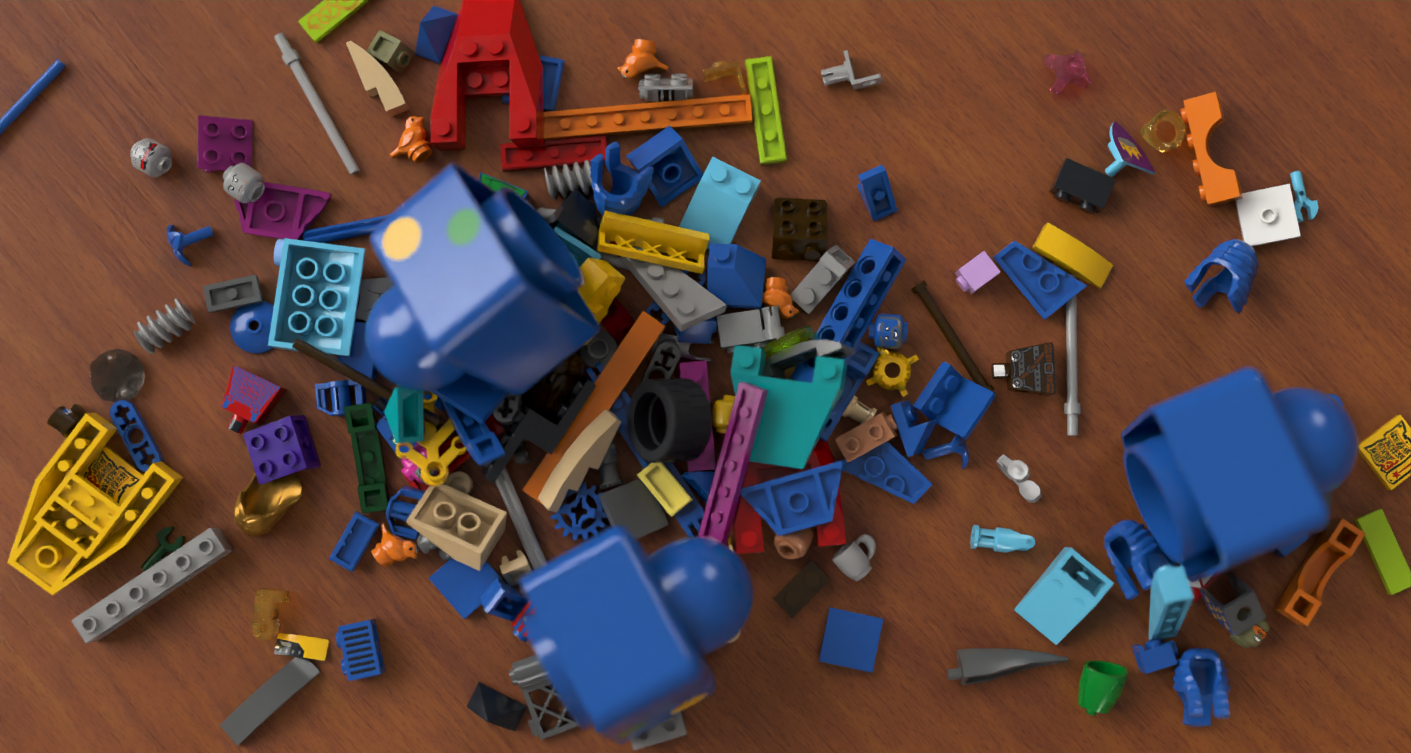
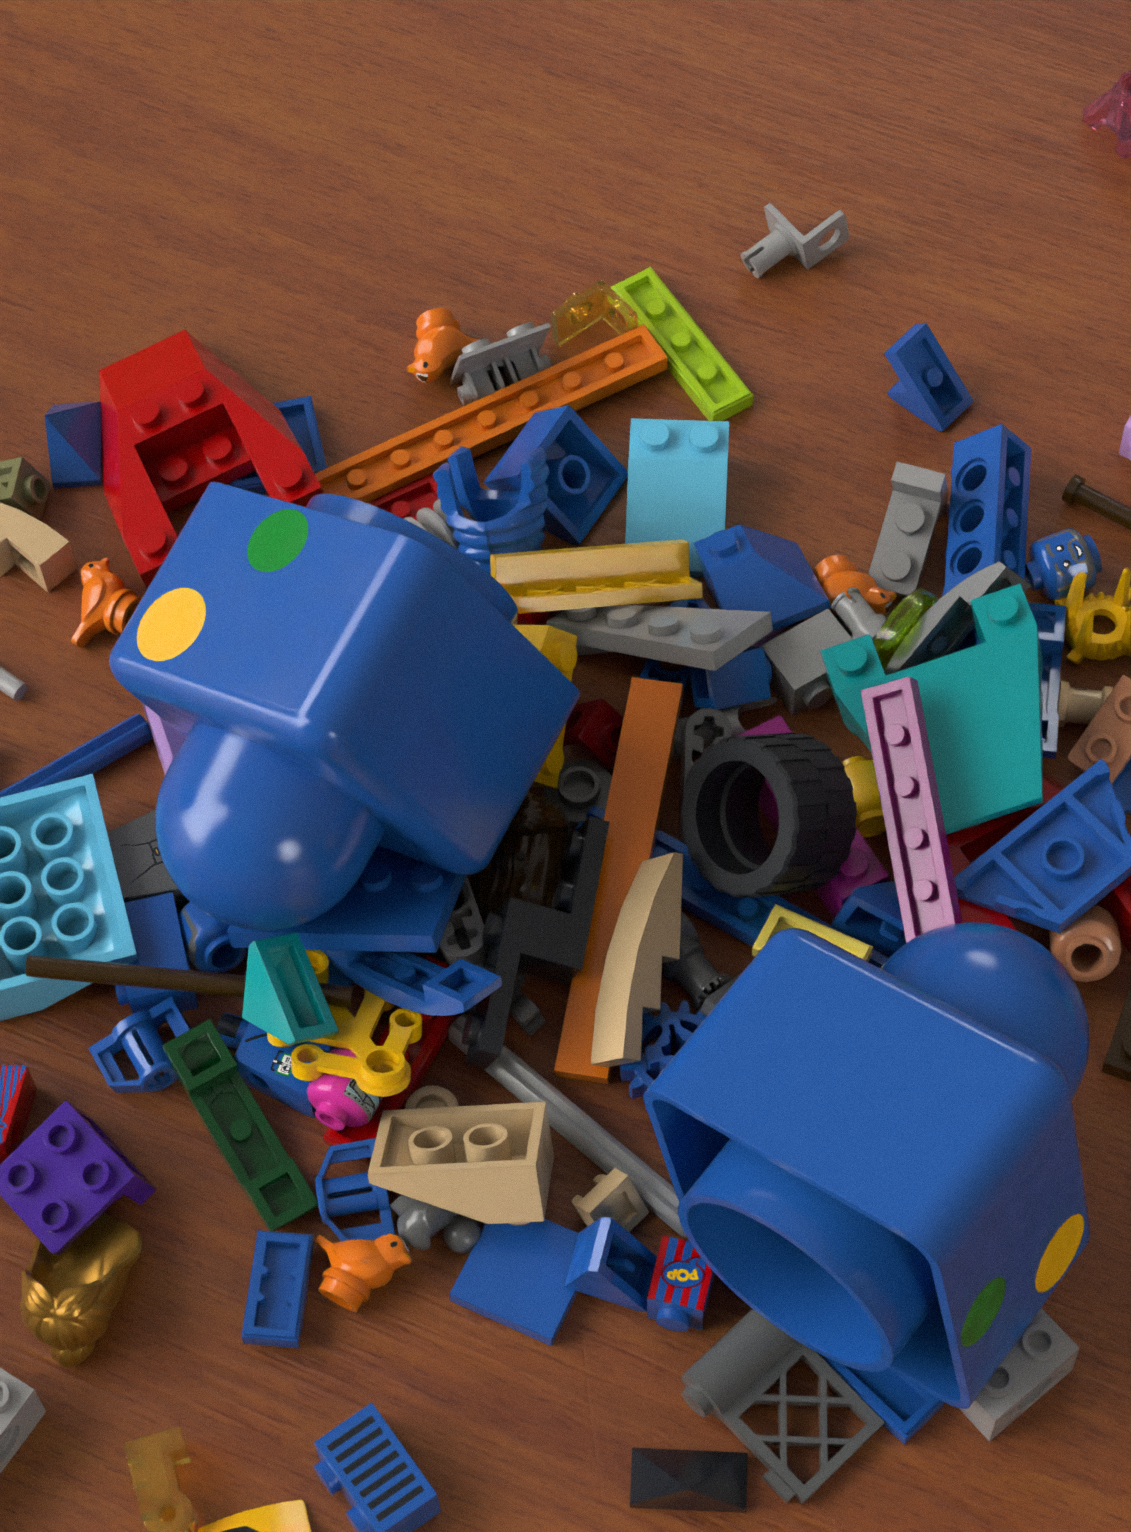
camera: 20 degrees left, 25 degrees down
(799, 229) = (832, 483): dark brown bracket -> none

